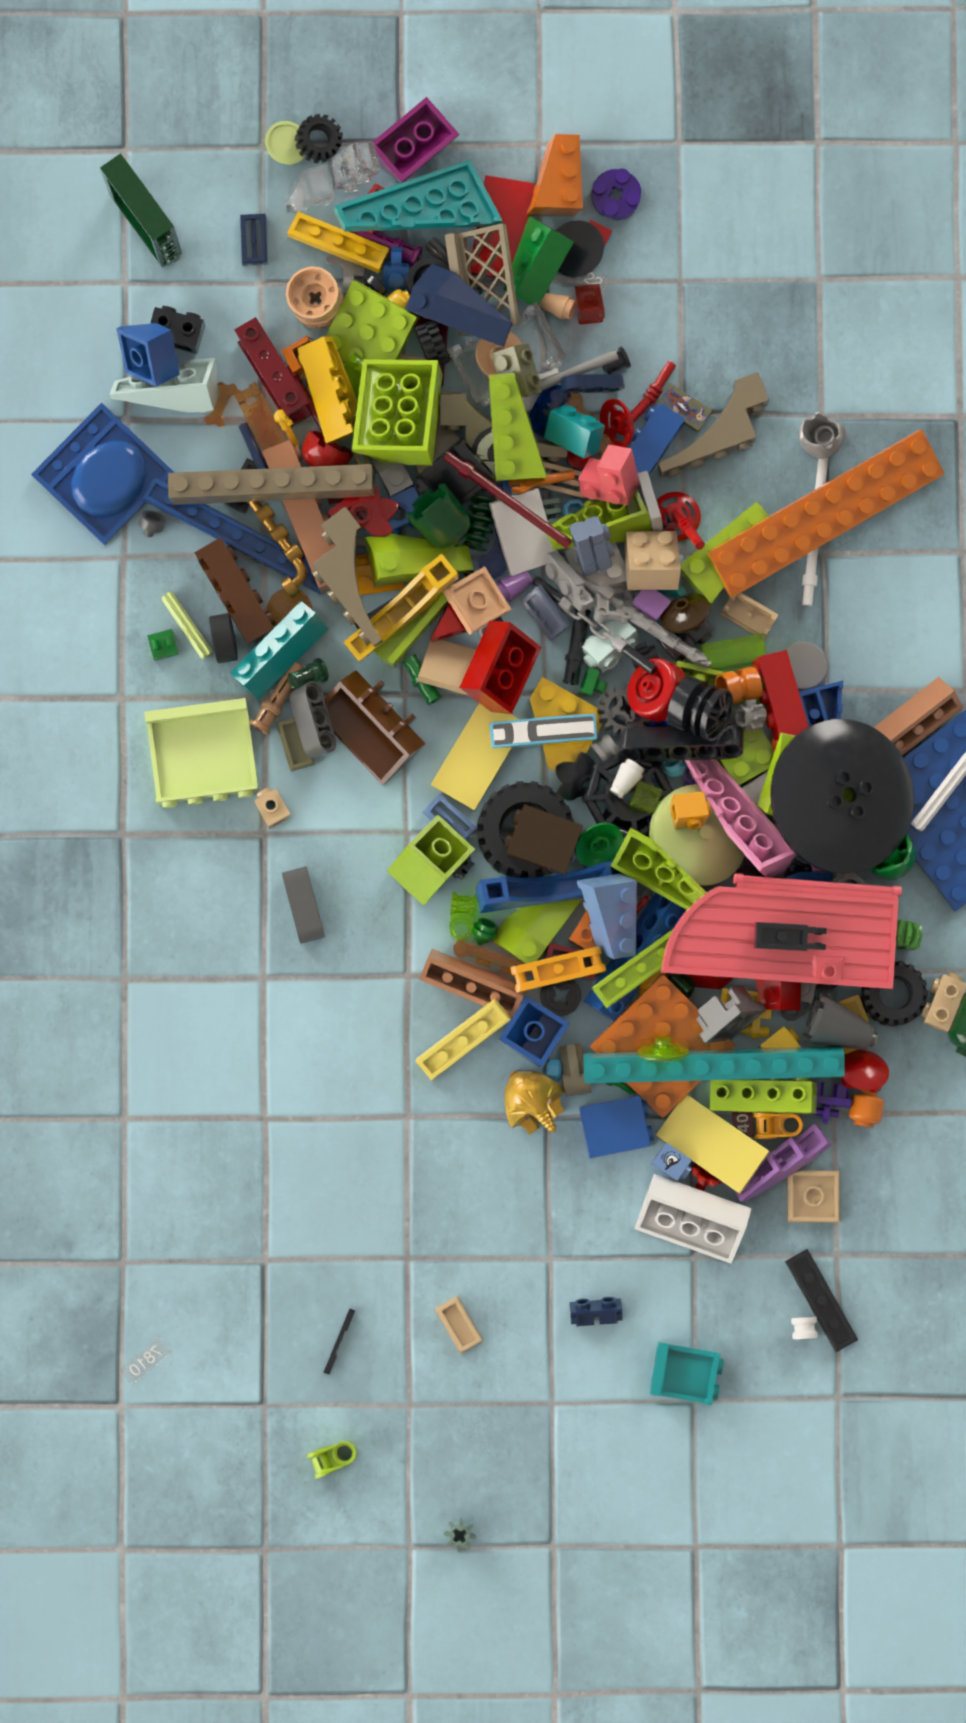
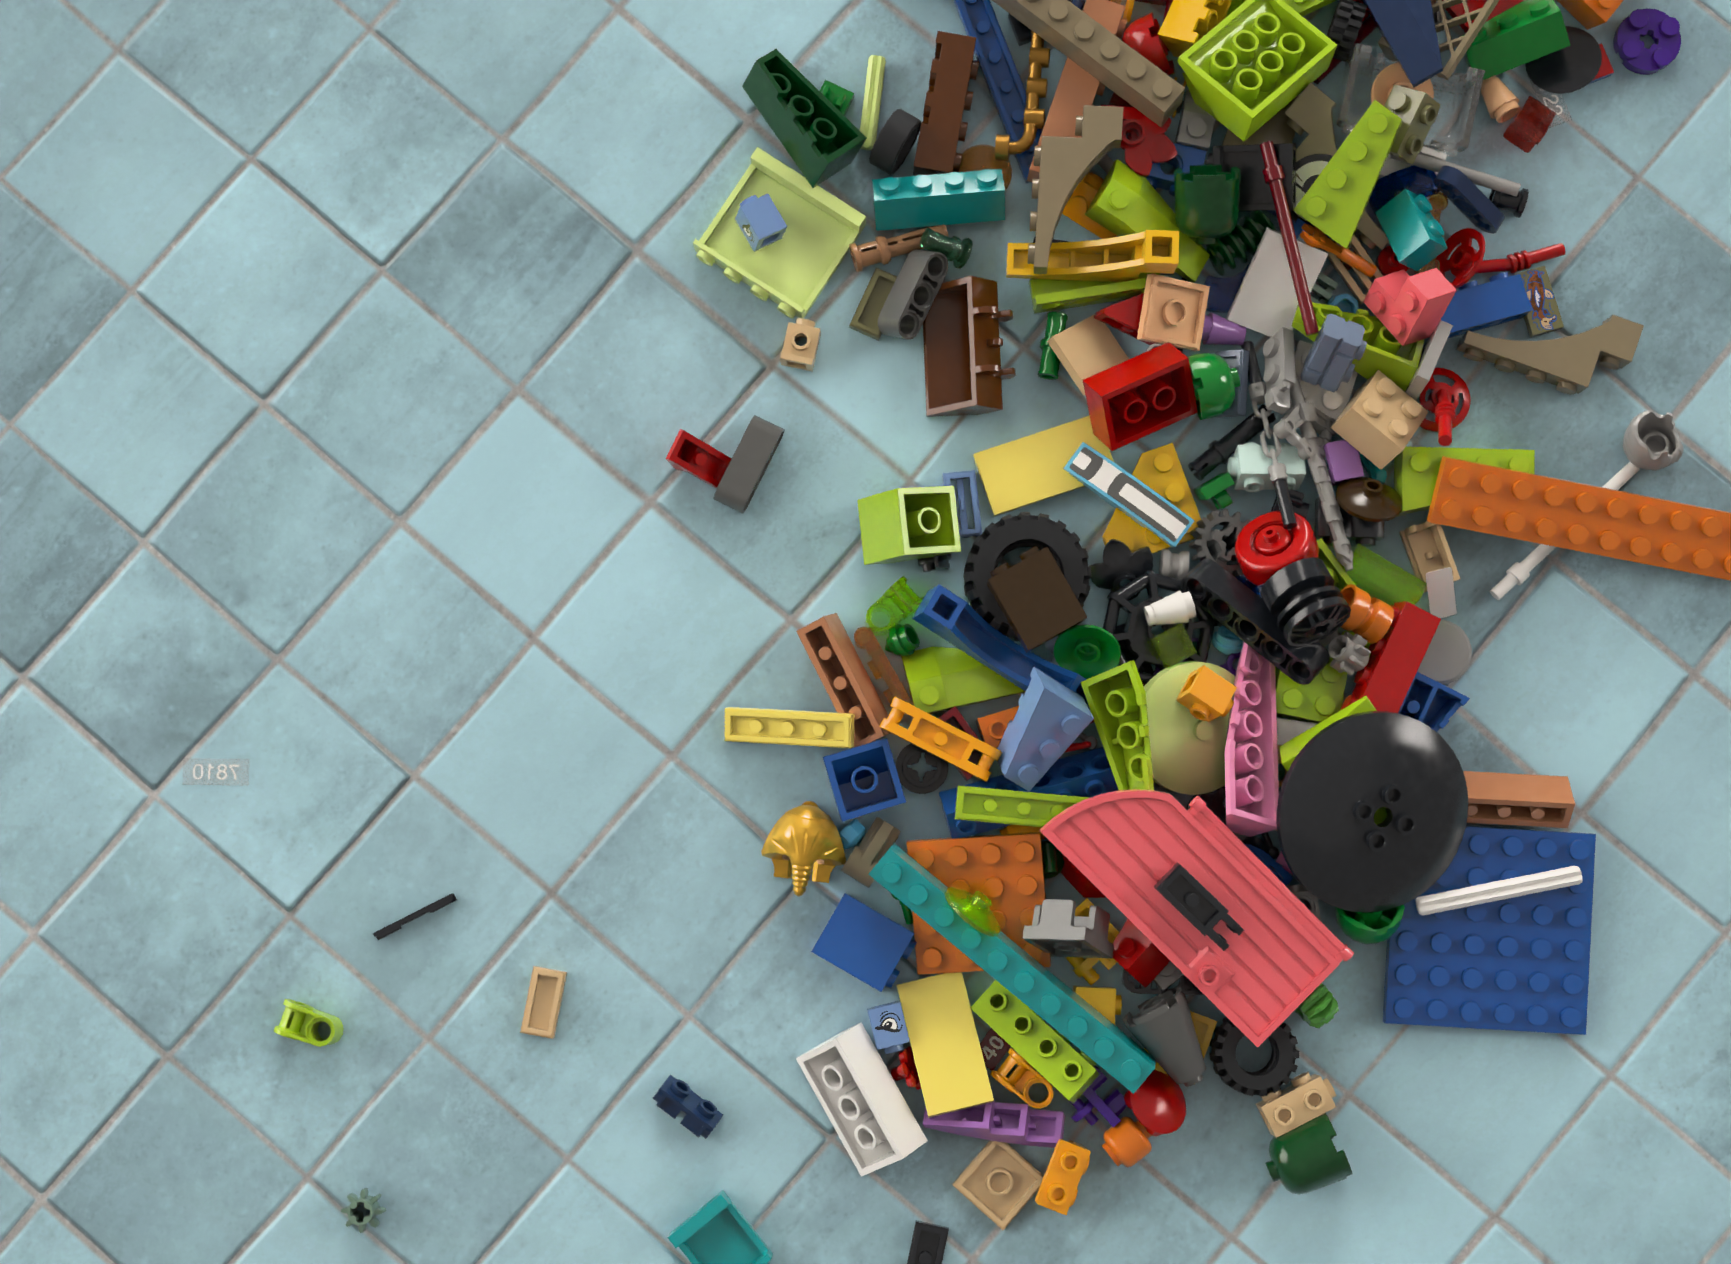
camera: 40 degrees right, 0 degrees up
(155, 671) = (802, 118): none -> dark green wedge
(184, 754) = (760, 221): none -> medium blue brick
(272, 927) = (698, 458): none -> red slope
(536, 623) = (1213, 384): none -> green cylinder
(774, 632) = (1441, 592): none -> white sticker
(846, 1160) = (1063, 1175): none -> light orange bracket

